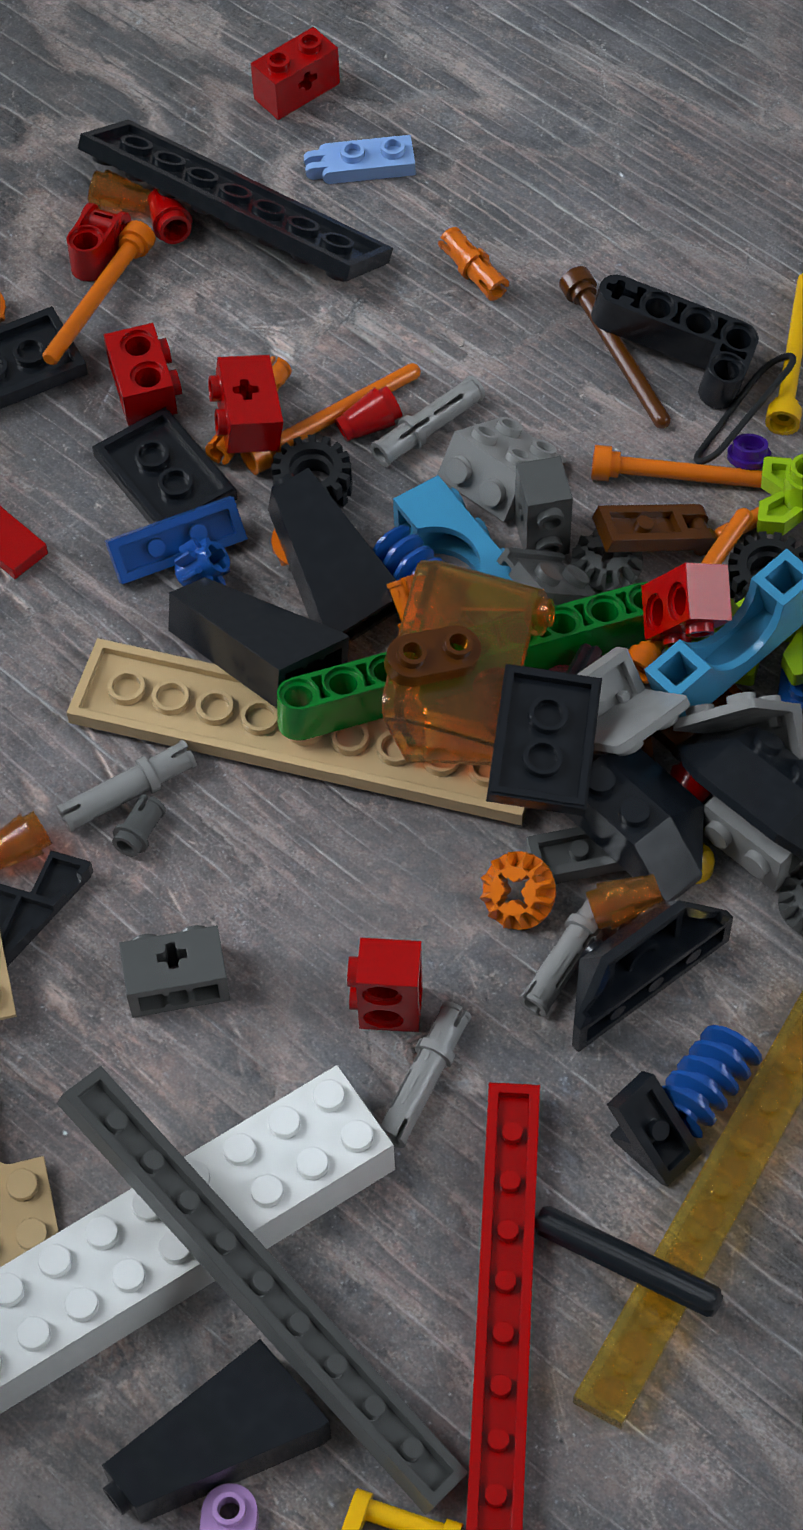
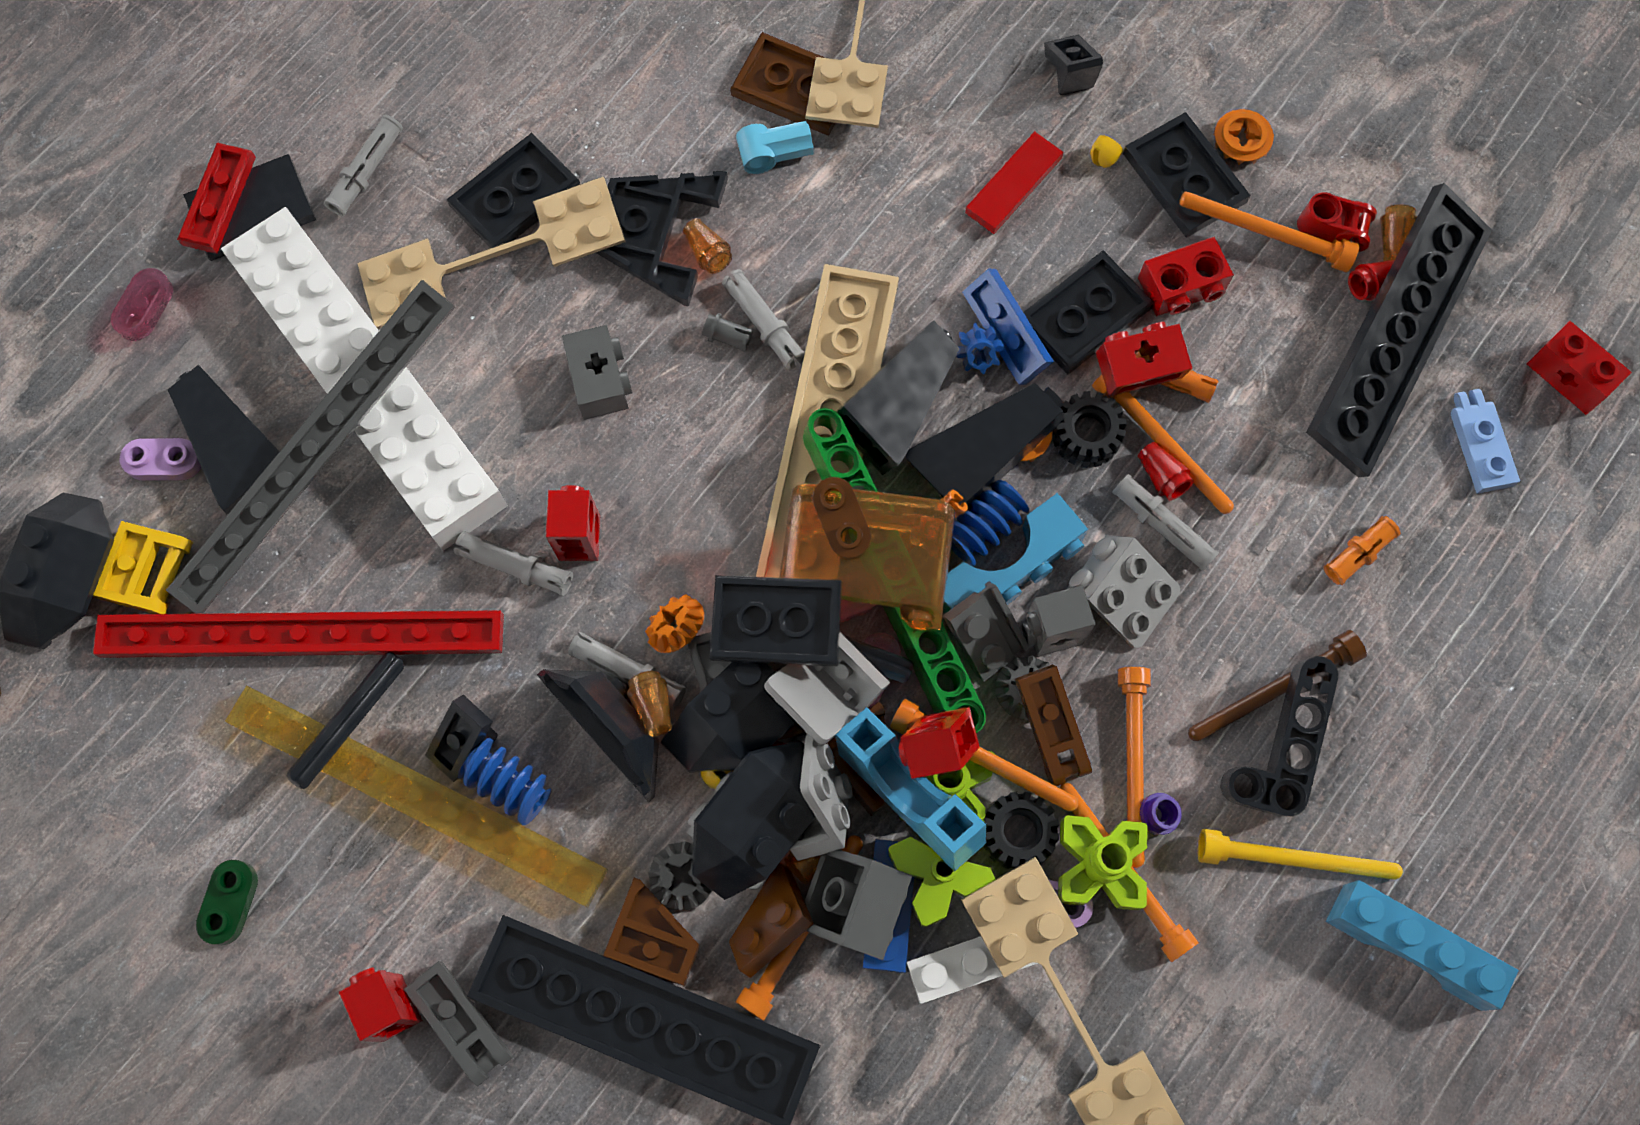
camera: 85 degrees right, 15 degrees up
(750, 414) = (1216, 821): black piece -> none

